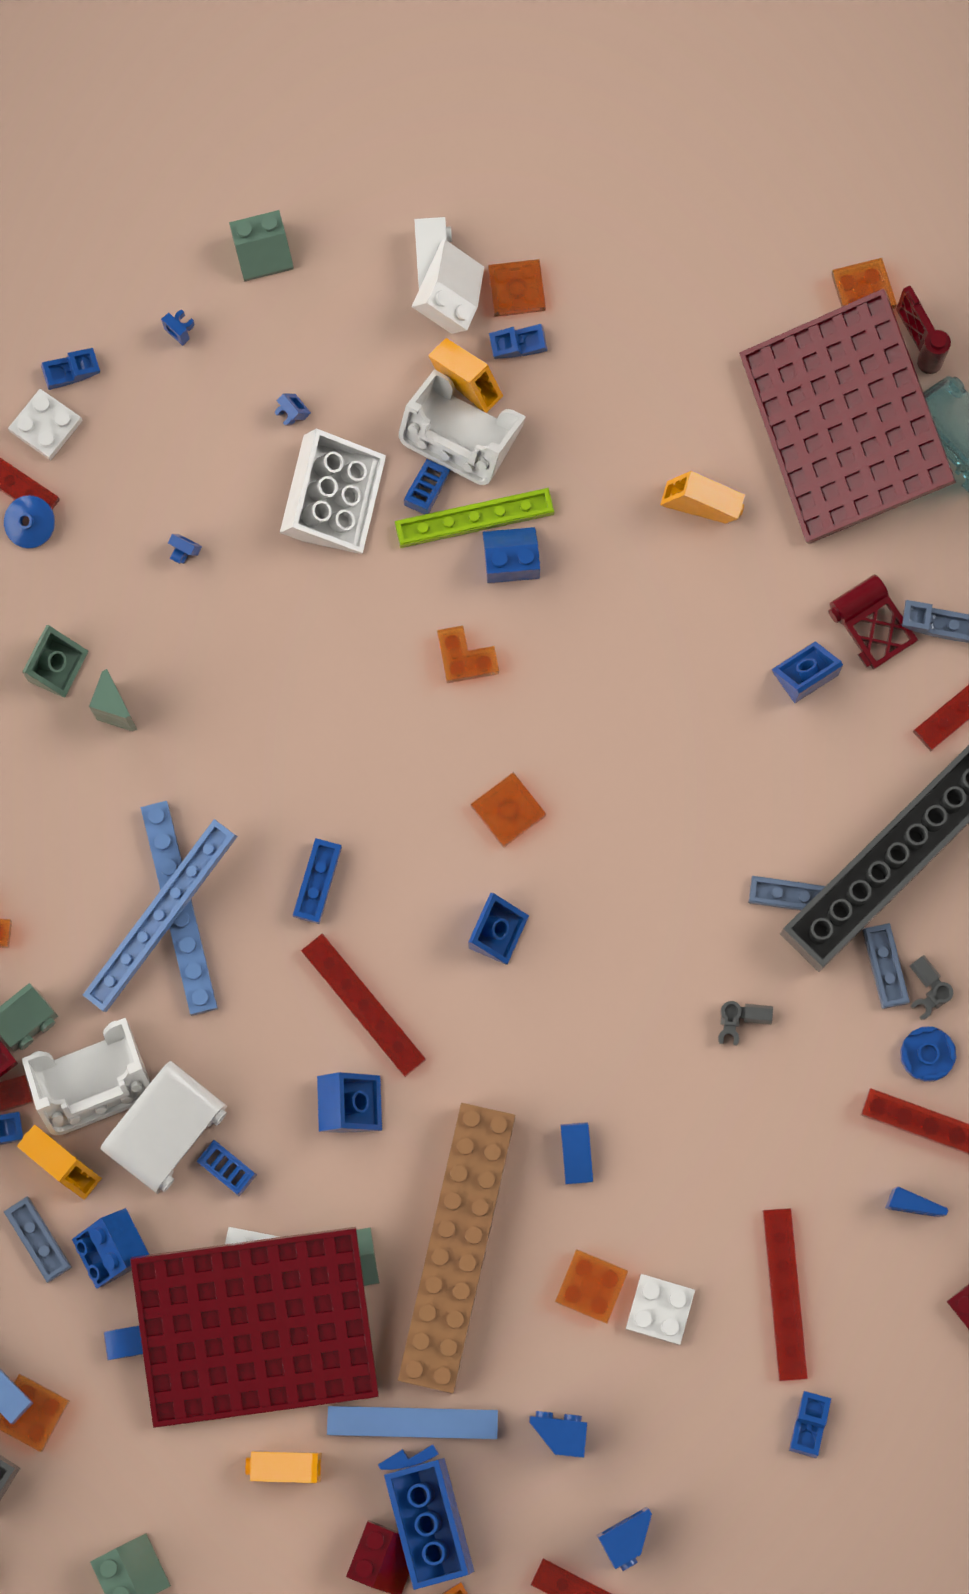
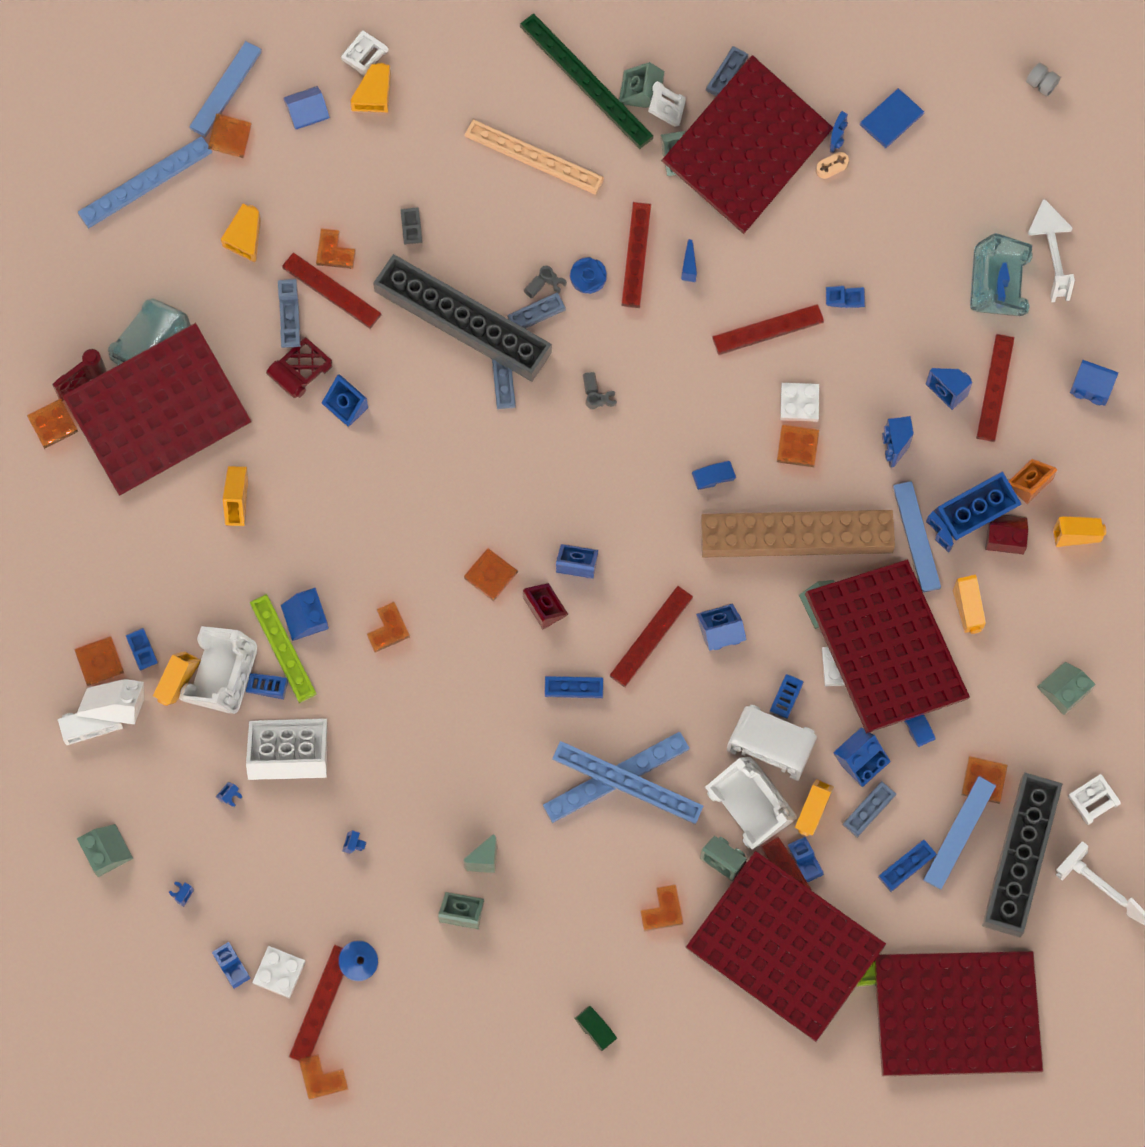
camera: 105 degrees left, 5 degrees down
(444, 869) = (544, 604): none -> dark red slope

